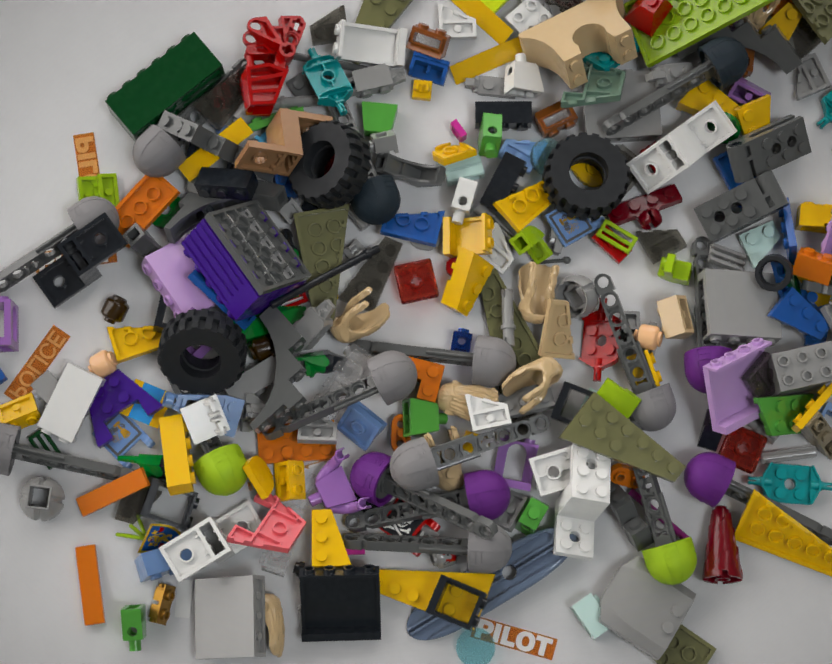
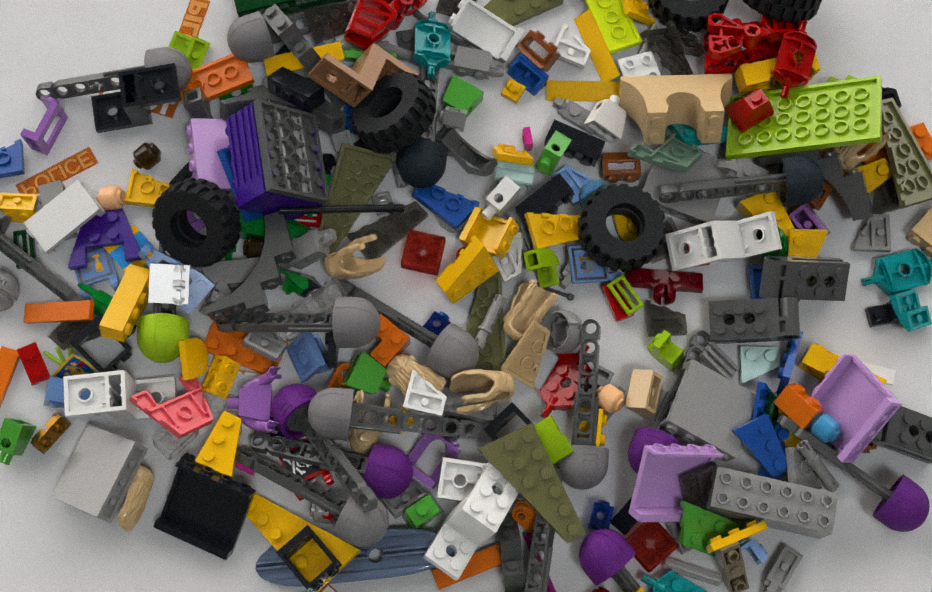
camera: 25 degrees right, 5 degrees down
(113, 549) = (33, 363): none -> red plate
(383, 415) = (331, 356): none -> black wing
(602, 535) = (479, 562): none -> orange tile
(692, 438) = (604, 508): none -> clear blue brick
(776, 258) = (740, 392): black tyre -> none

